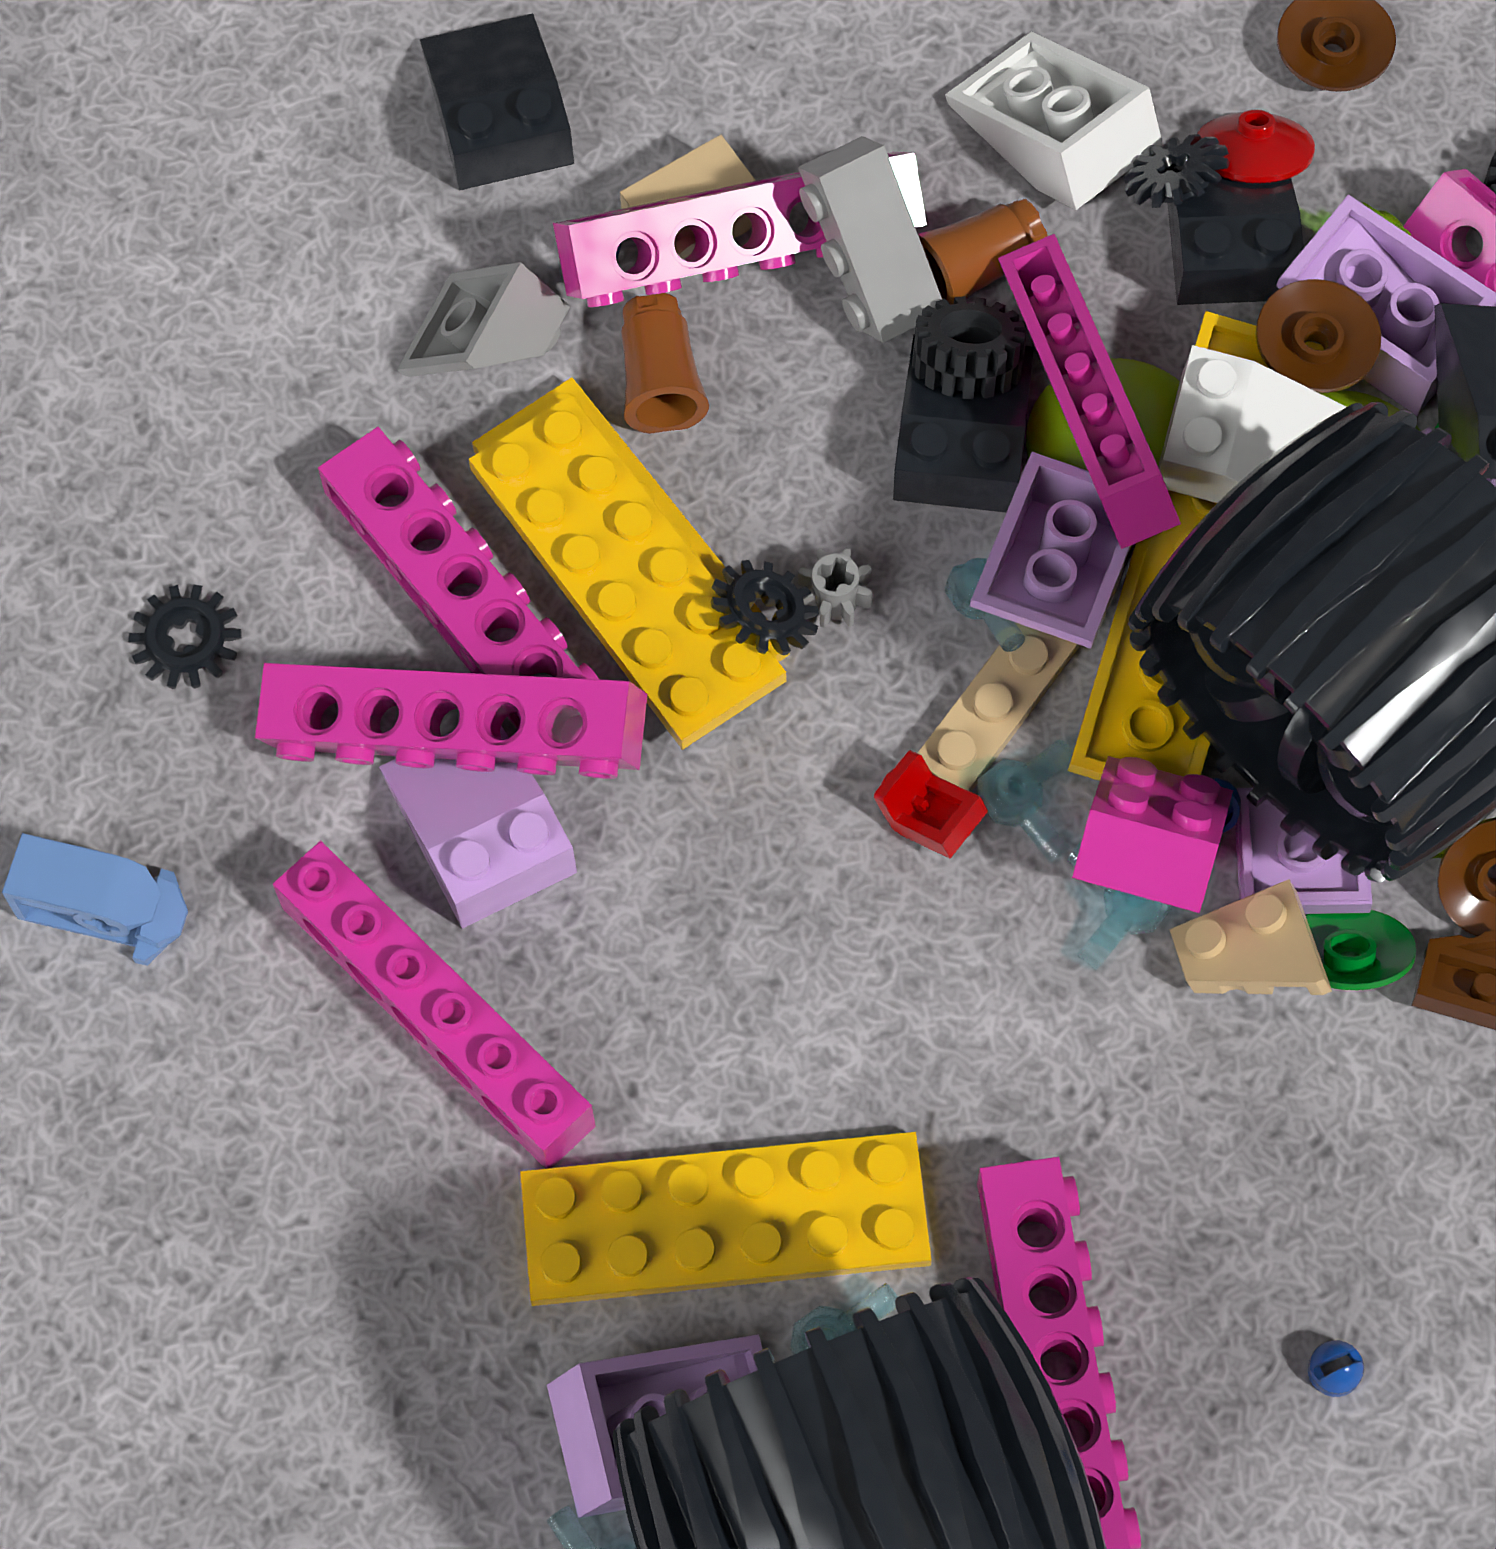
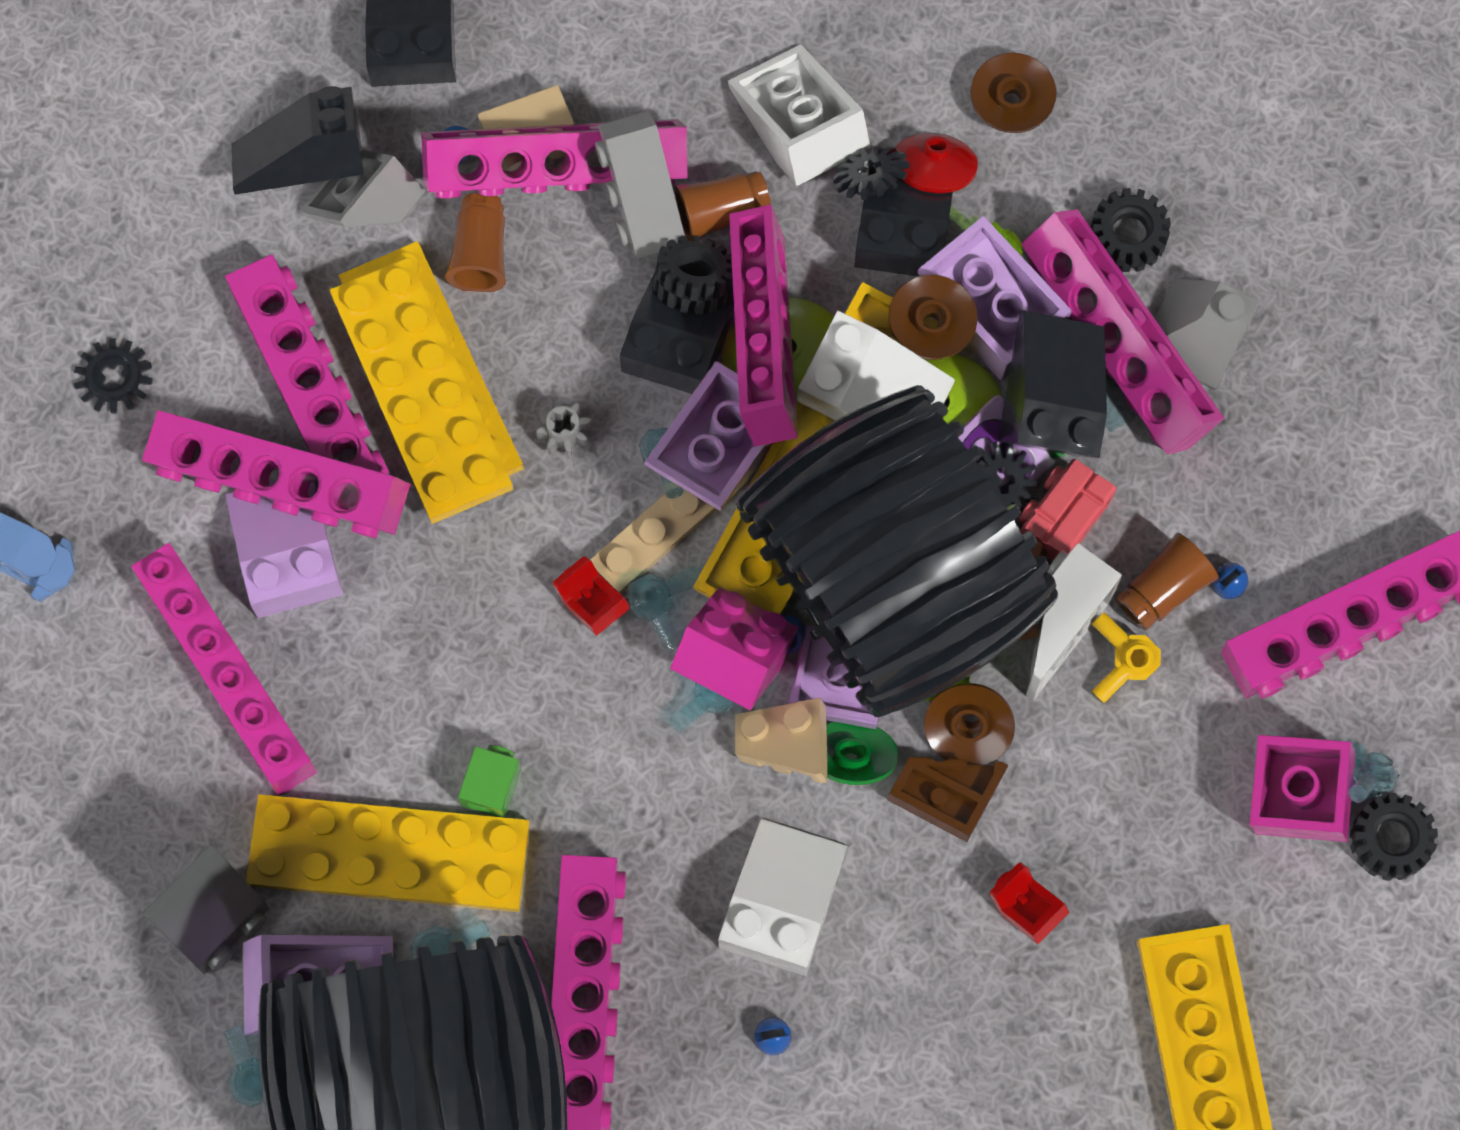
camera: 10 degrees right, 5 degrees up
(388, 272) = (301, 144): none -> black slope
(492, 1347) = (208, 911): none -> dark grey slope
(775, 590) = (517, 425): black gear -> none
(849, 1087) = (490, 781): none -> bright green brick
(1302, 1171) = (782, 897): none -> white slope

